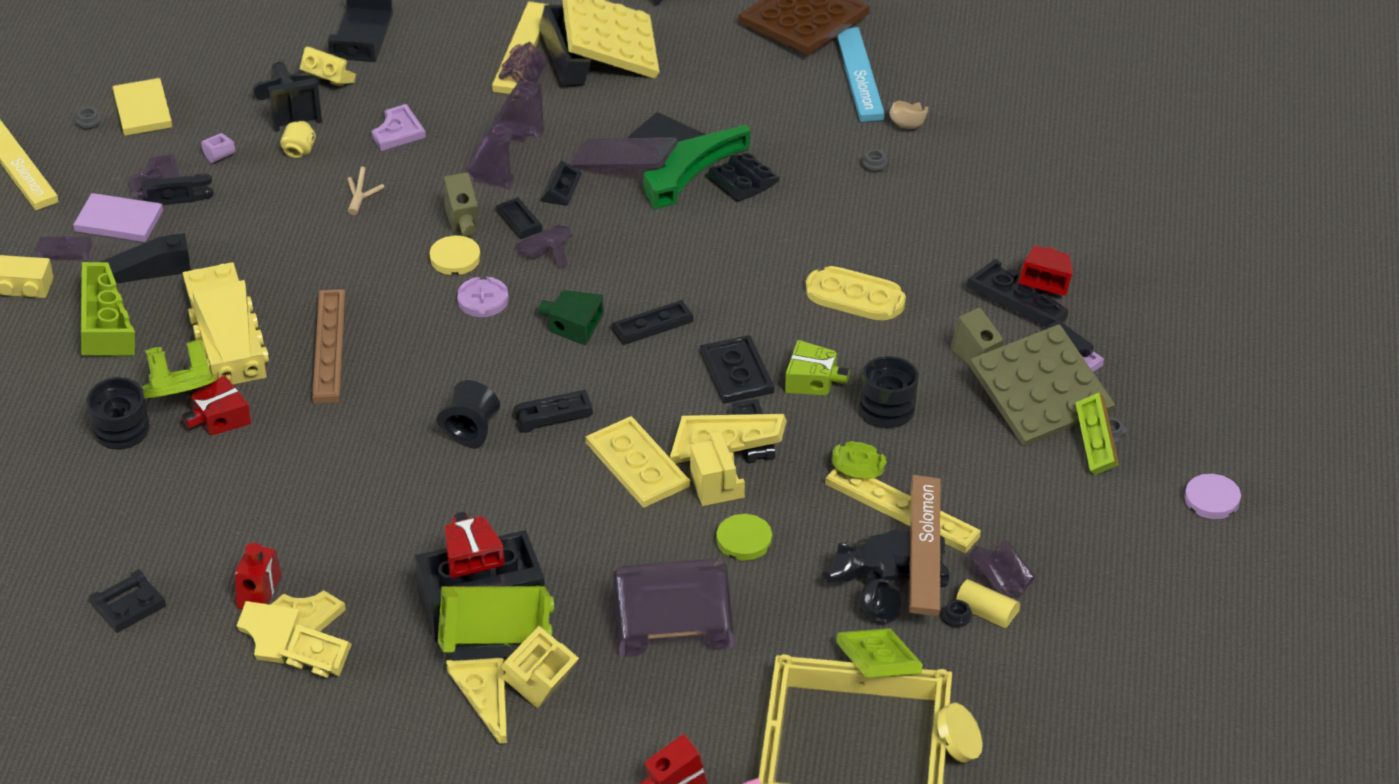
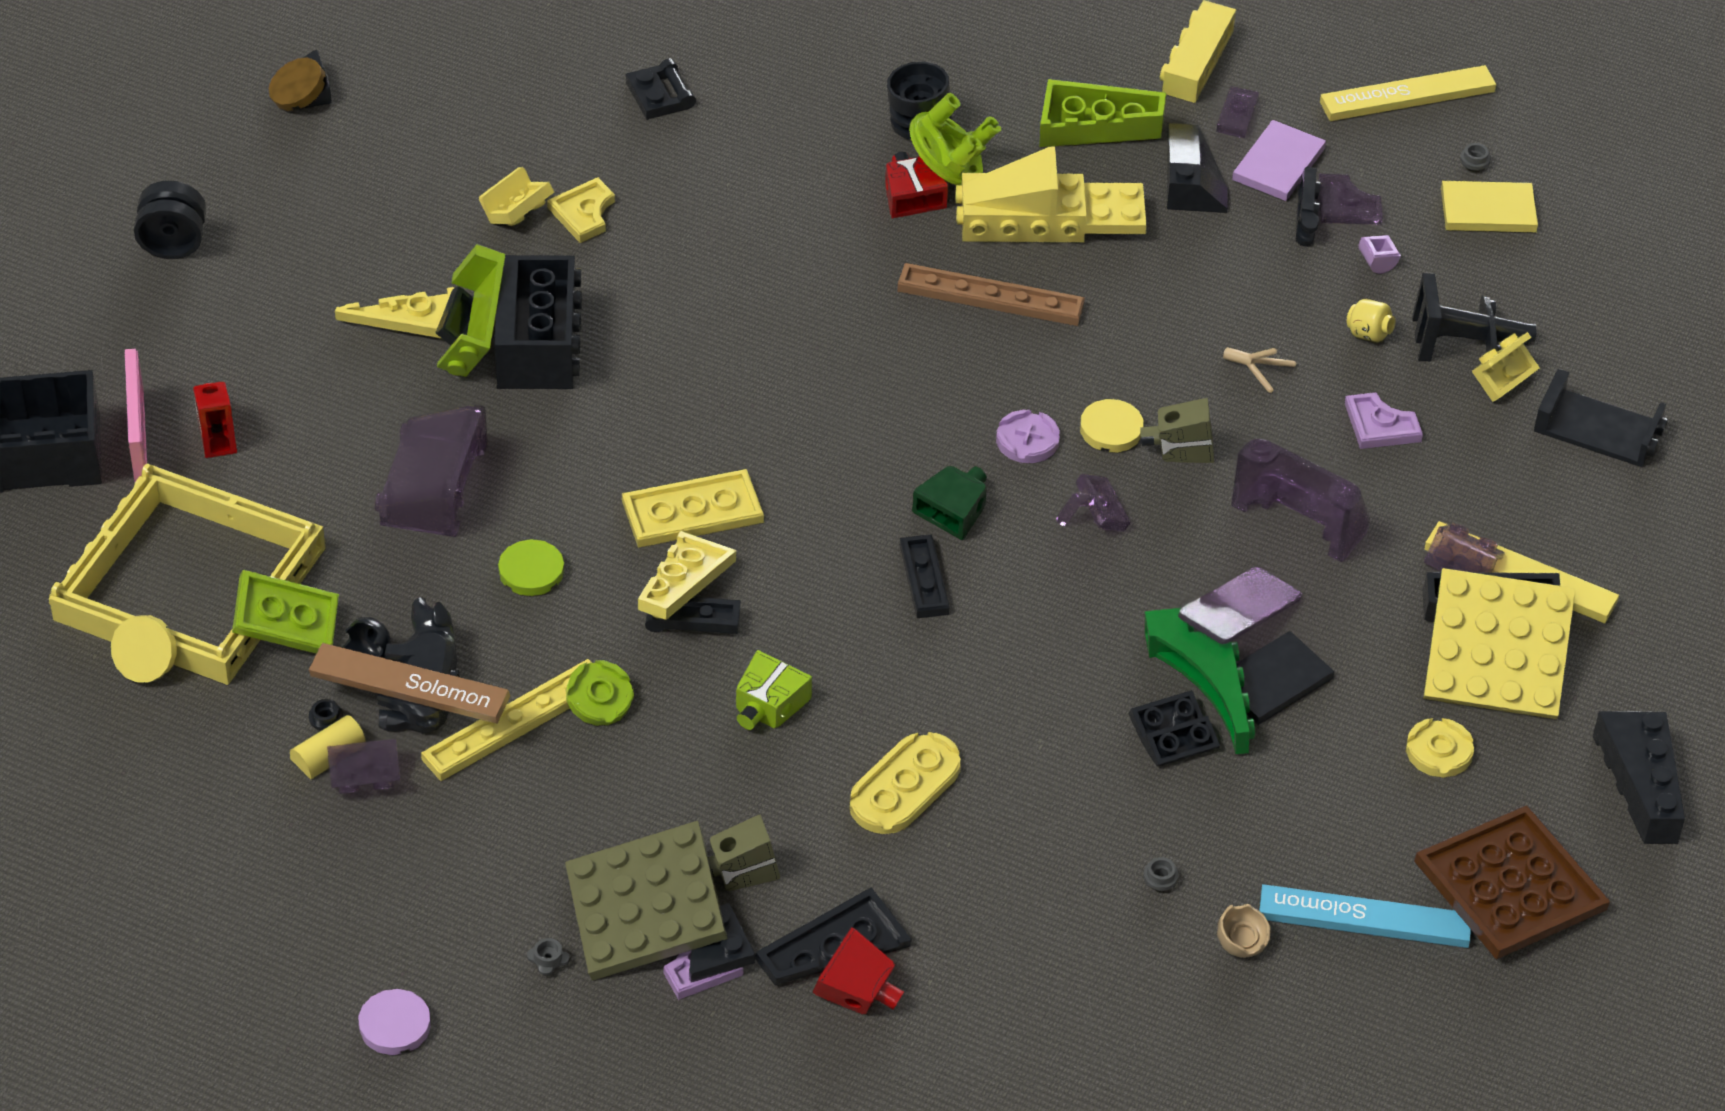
camera: 105 degrees right, 5 degrees up
(259, 569) = (636, 169): red torso -> none
(270, 628) = (569, 175): light yellow tile -> none
(468, 414) = (806, 365): black hat -> none
(472, 545) = (555, 285): red torso -> none
(519, 218) = (1164, 497): black tile -> none
(538, 666) = (399, 340): light yellow plate -> none
(552, 410) = (800, 452): black plate -> none
(561, 185) = (1216, 549): black slope -> none
(698, 63) = (1440, 747): none -> light yellow tile
(714, 471) = (626, 552): light yellow plate -> none
(736, 369) = (811, 632): black tile -> none
(888, 391) = (687, 737): black wheel -> none
(1097, 433) = (533, 924): lime plate -> none

